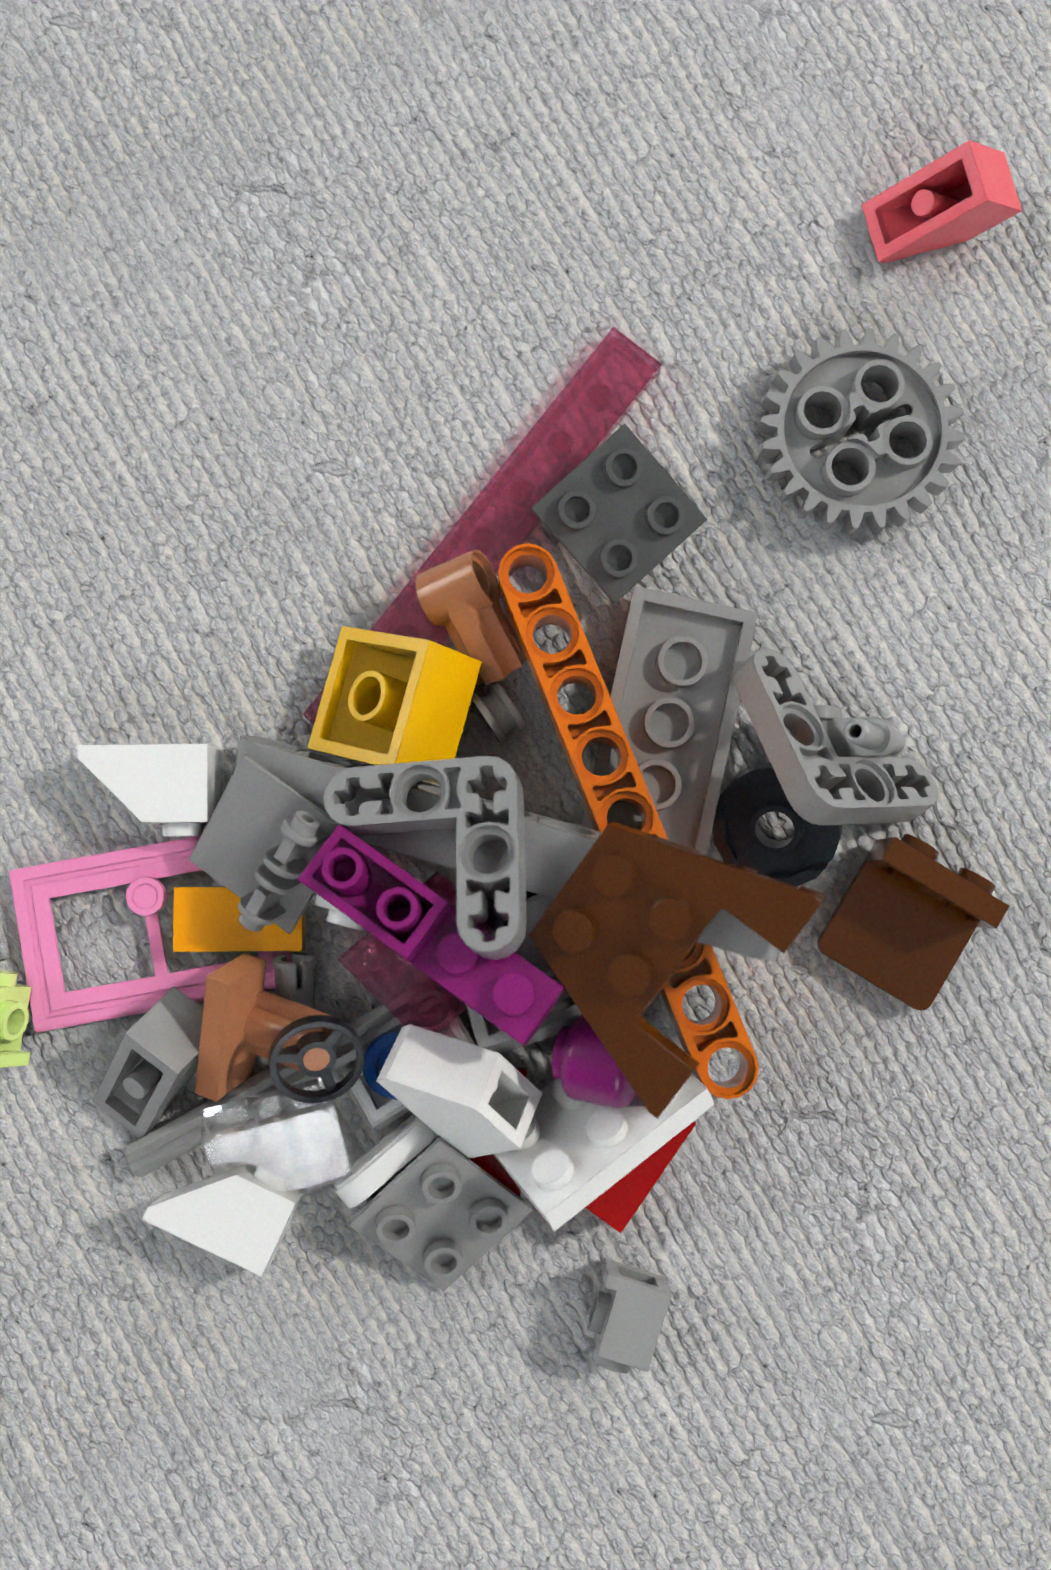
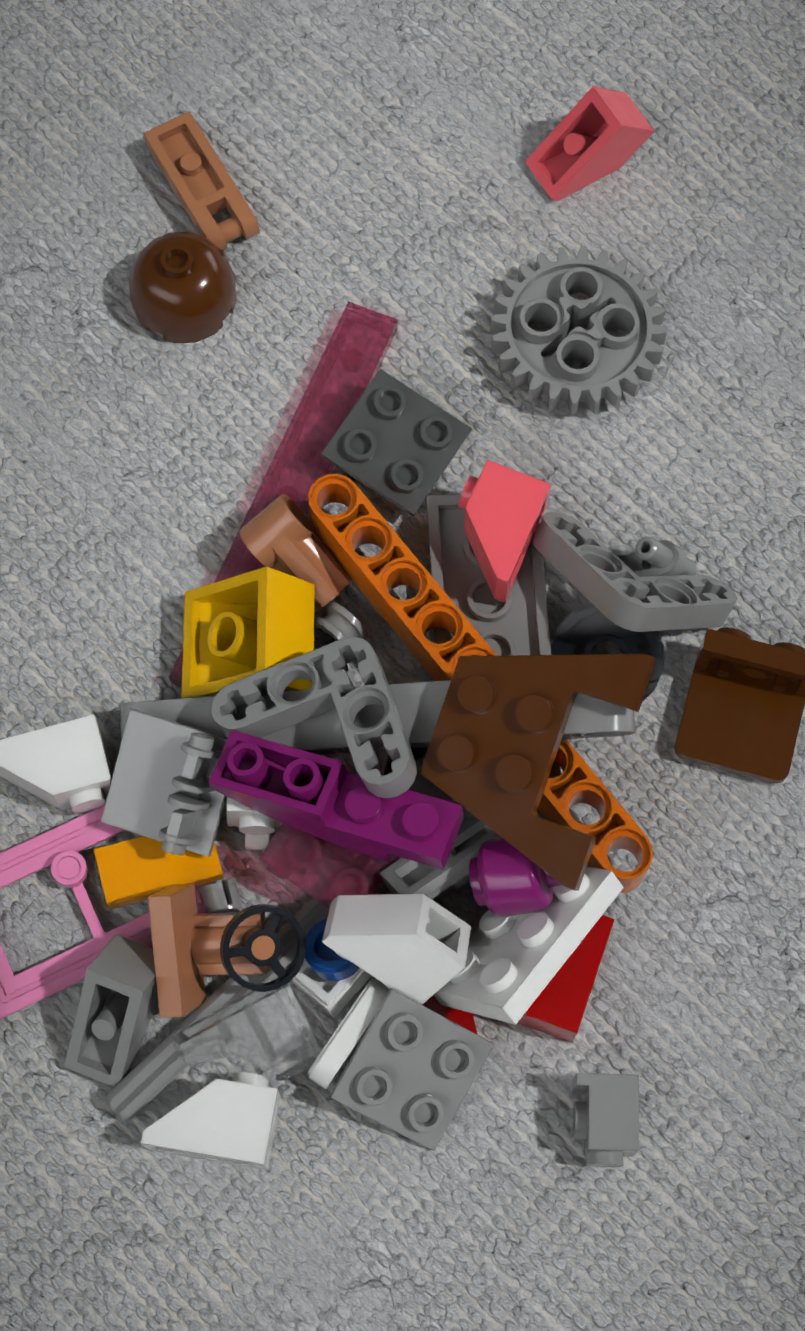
camera: 15 degrees left, 15 degrees down
(433, 258) = (182, 287): none -> reddish brown cylinder
(487, 131) = (200, 180): none -> nougat plate
(707, 645) = (501, 520): none -> coral slope

